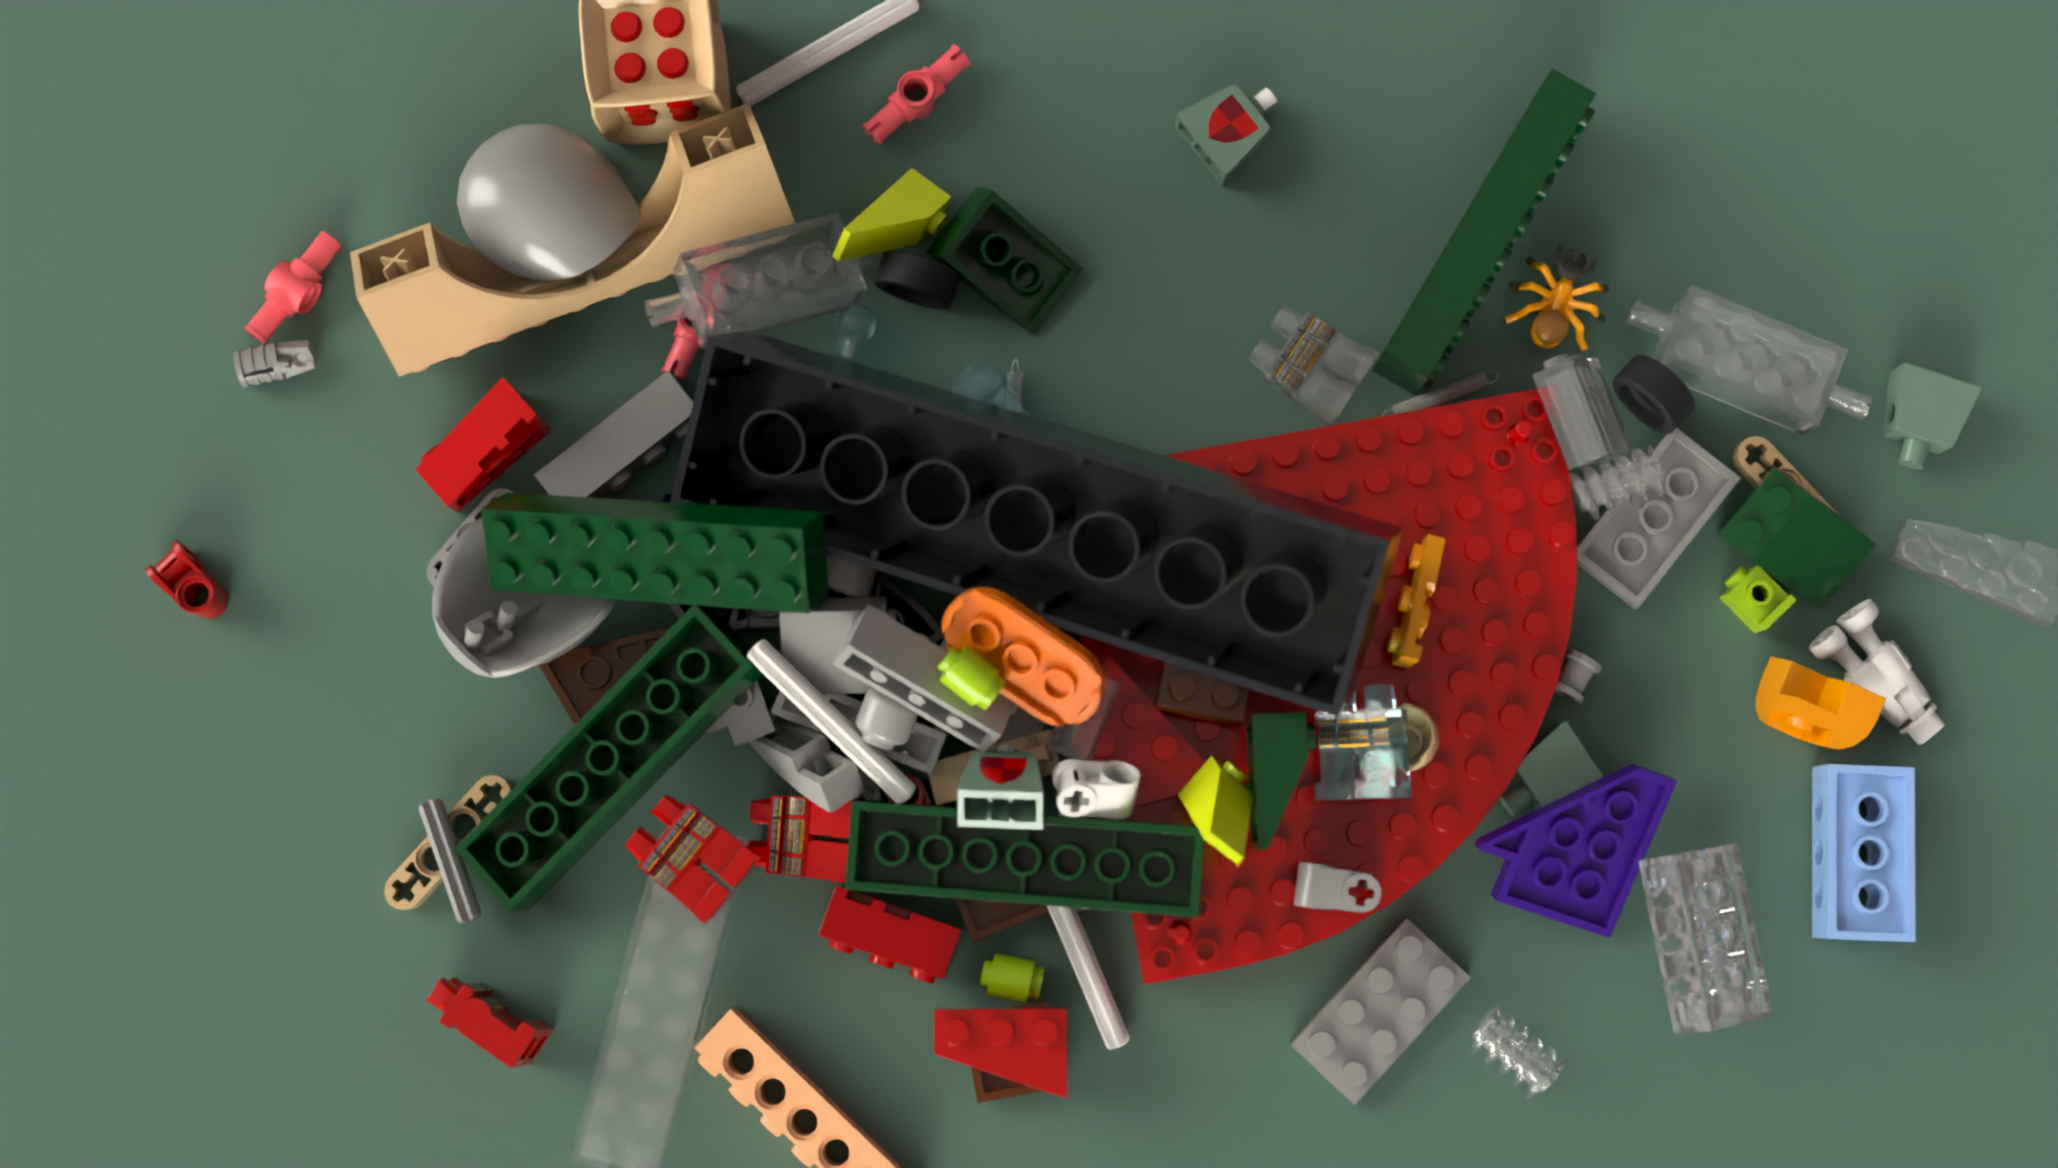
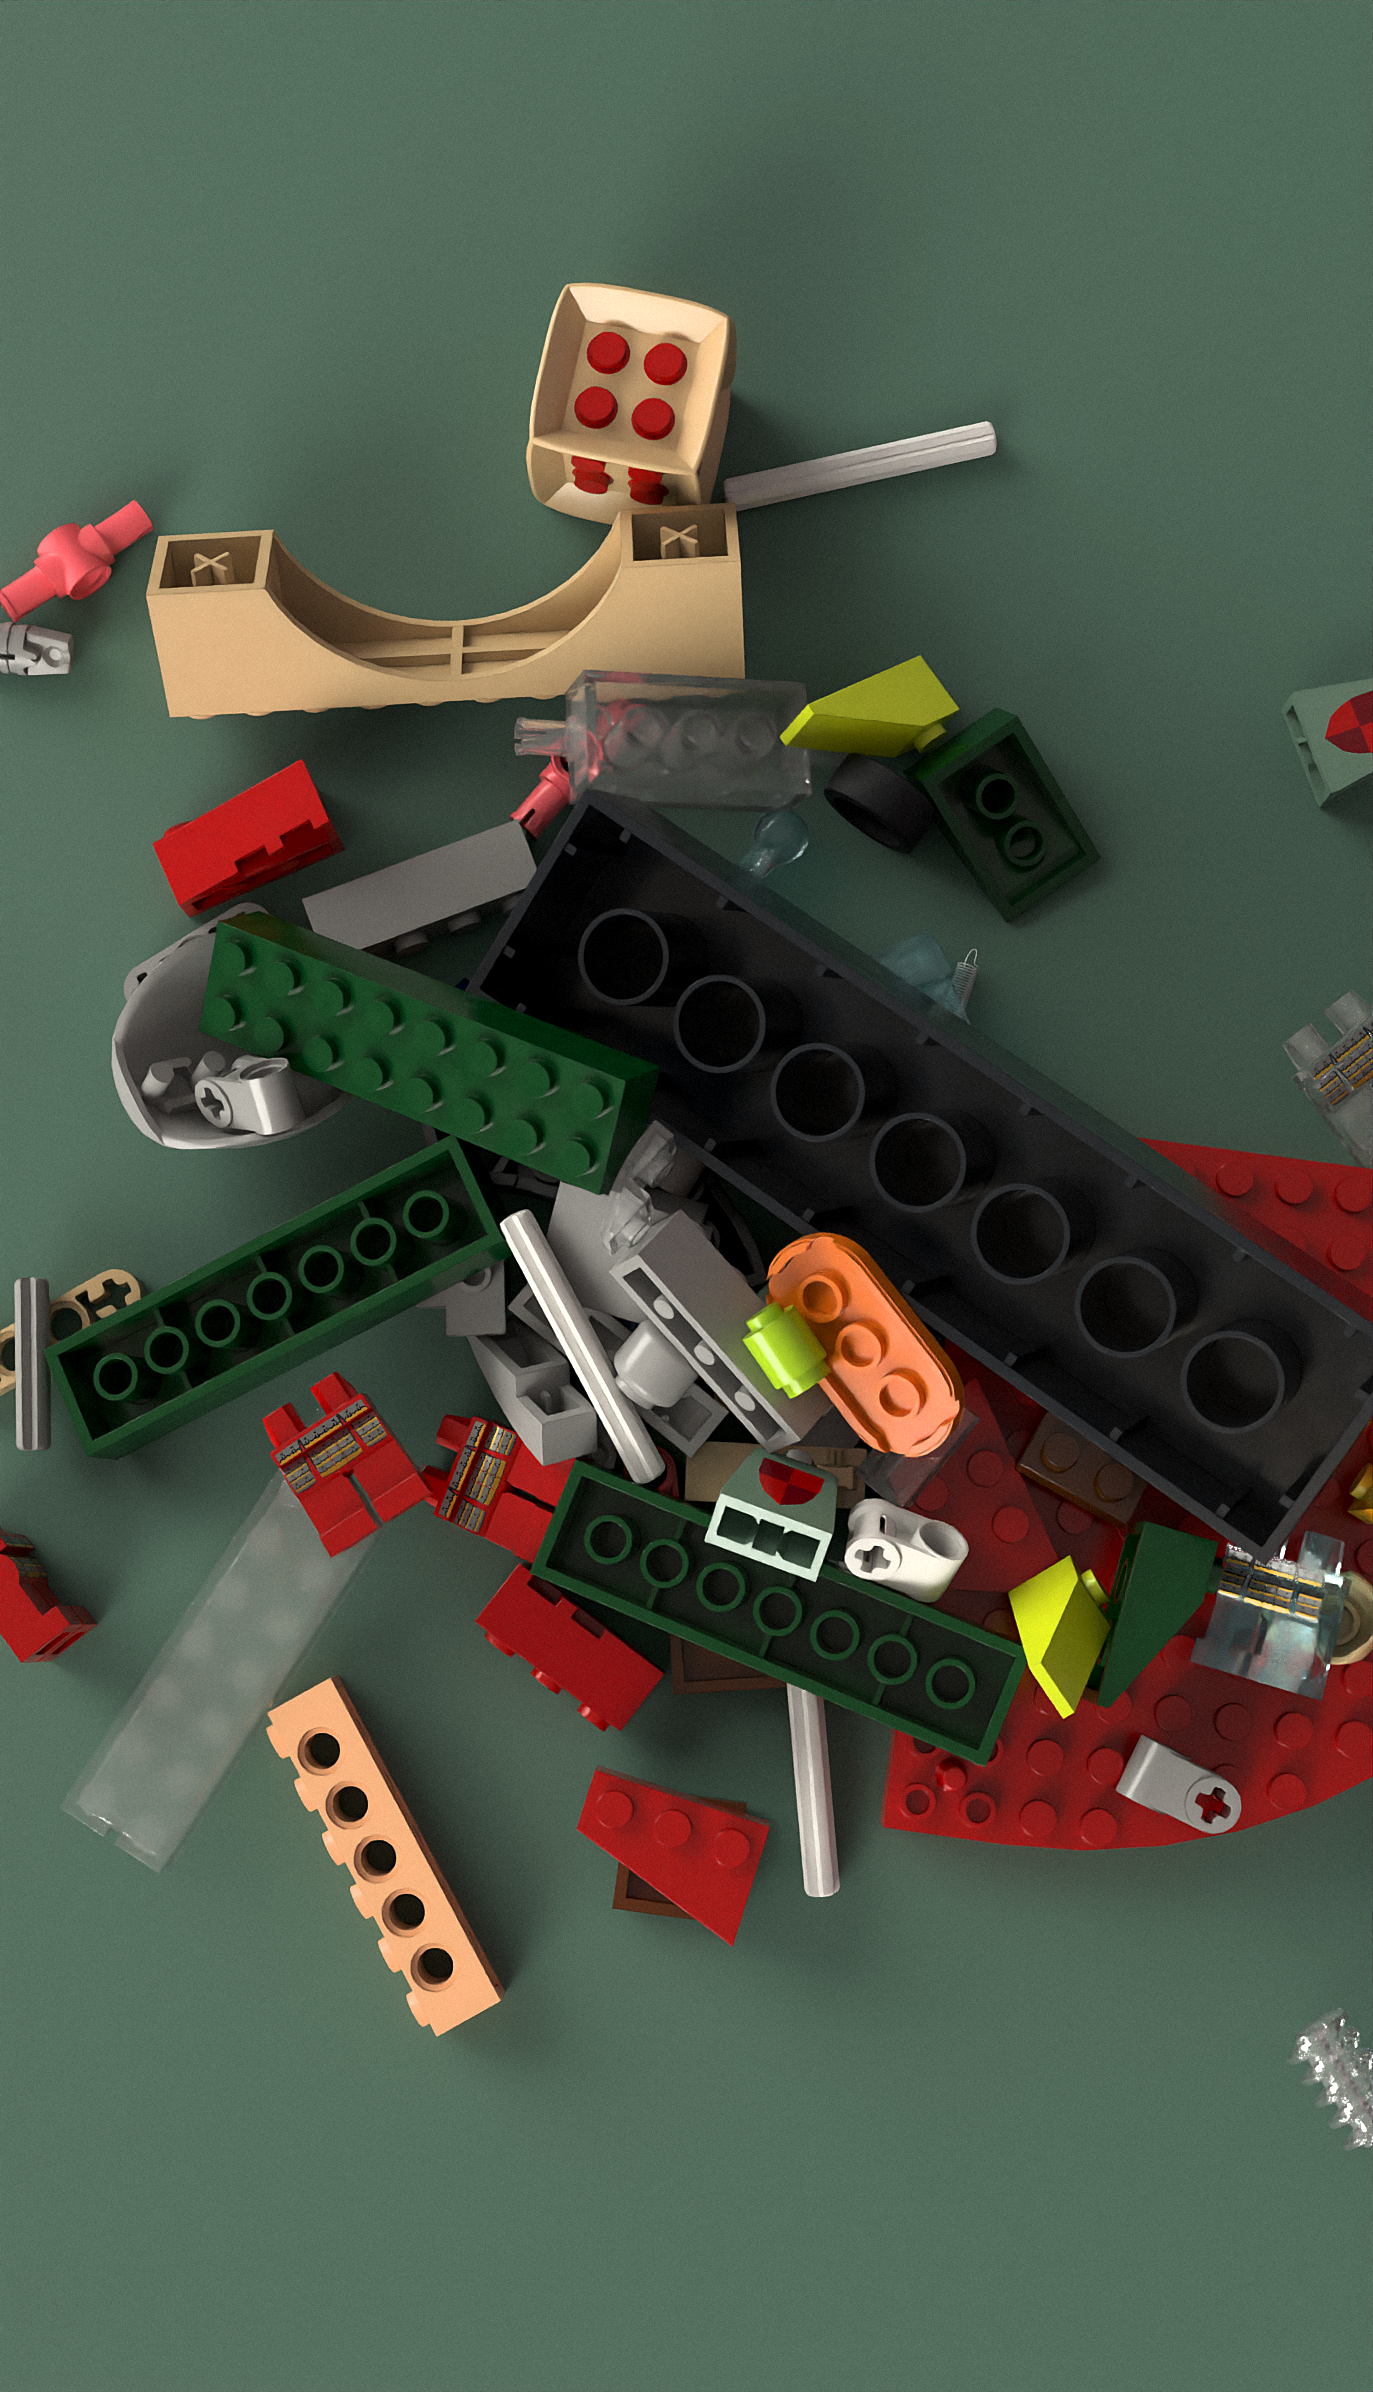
camera: 25 degrees right, 0 degrees up
(544, 202) = (429, 551): light grey piece -> none
(544, 623) = (252, 1096): none -> light grey piece
(590, 672) = (292, 1178): reddish brown wing -> none
(833, 614) = (628, 1205): none -> clear slope
(930, 80) = (979, 548): coral pin -> none
(1012, 978) = (710, 1759): lime brick -> none
(1380, 1011) = (1182, 1964): light grey plate -> none

